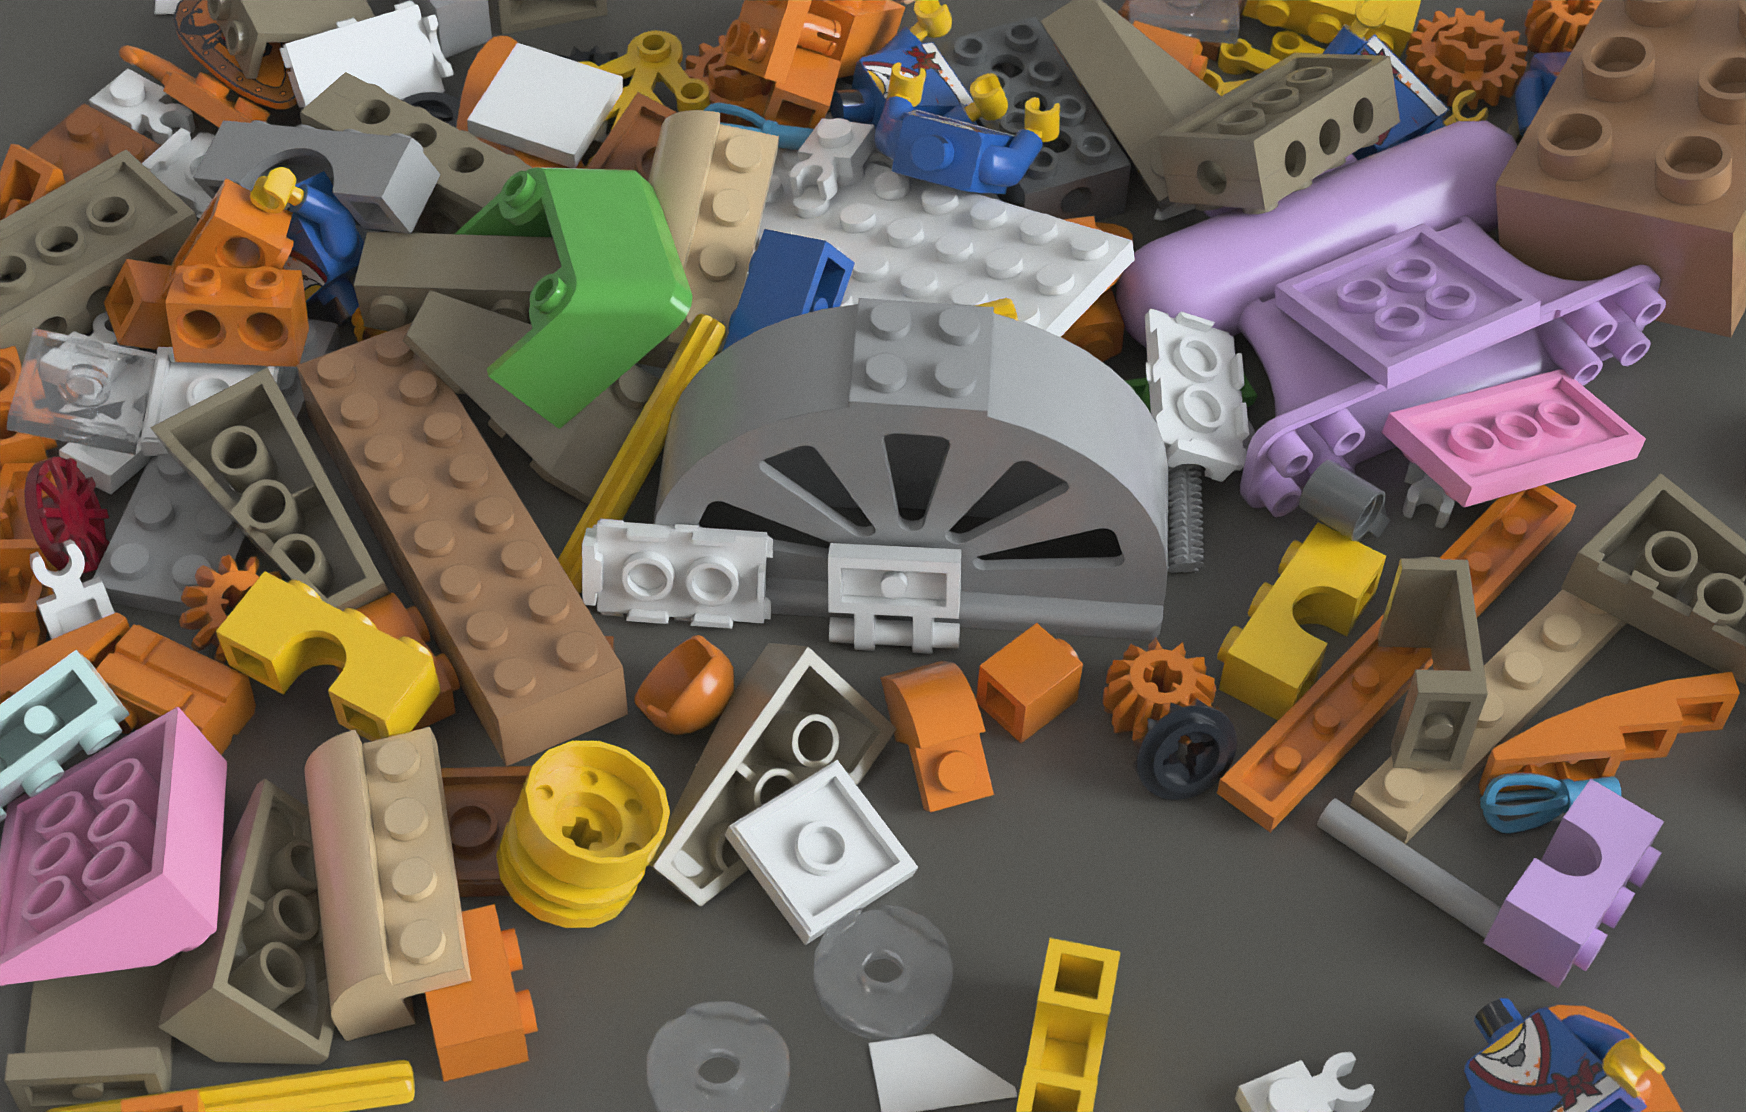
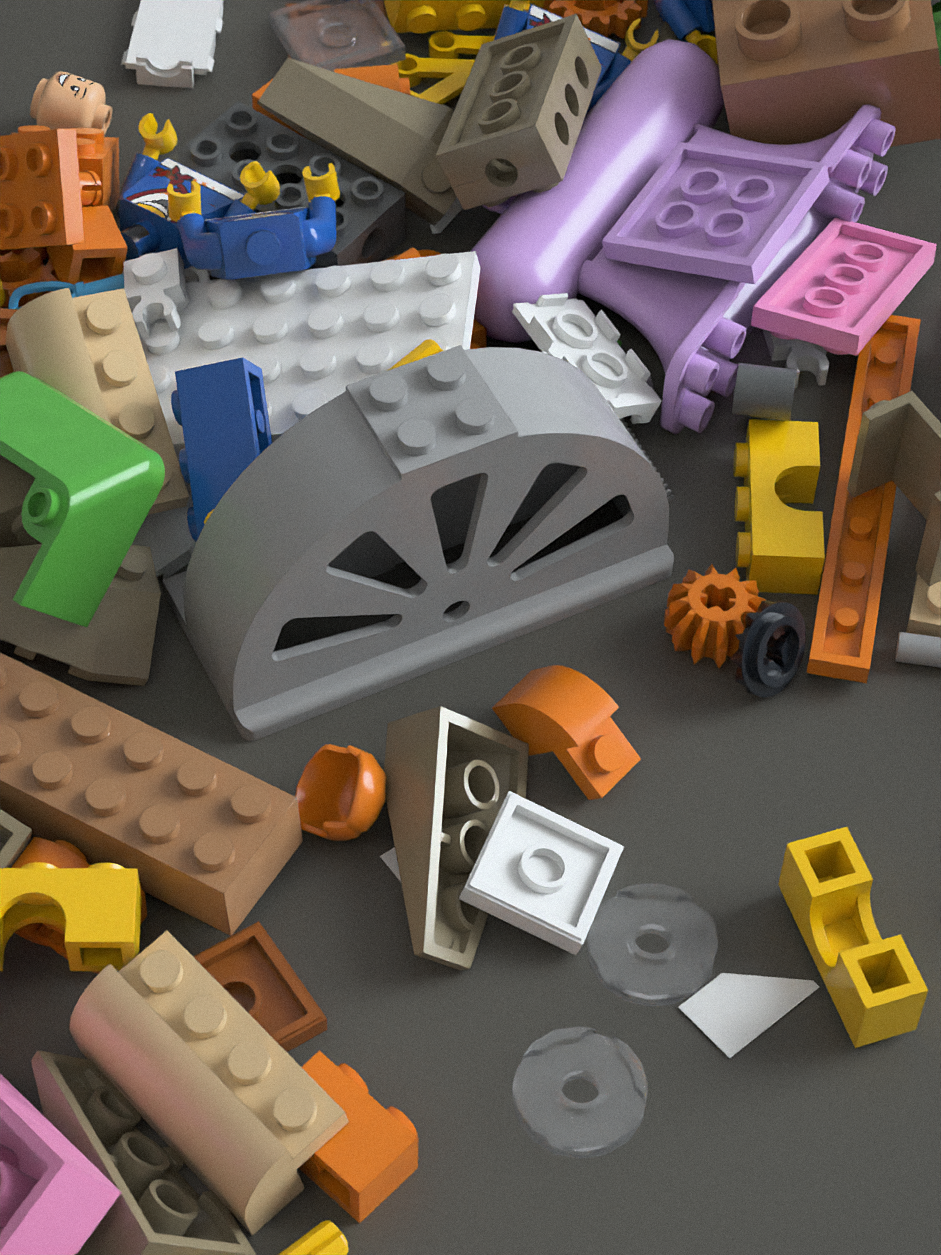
camera: 30 degrees left, 0 degrees up
(582, 834) = (353, 954): yellow wheel -> none
(645, 439) = (169, 605): yellow axle -> none
(676, 573) = (269, 701): white piece -> none
(894, 583) = (457, 624): white plate -> none
(1029, 682) = (612, 650): orange brick -> none

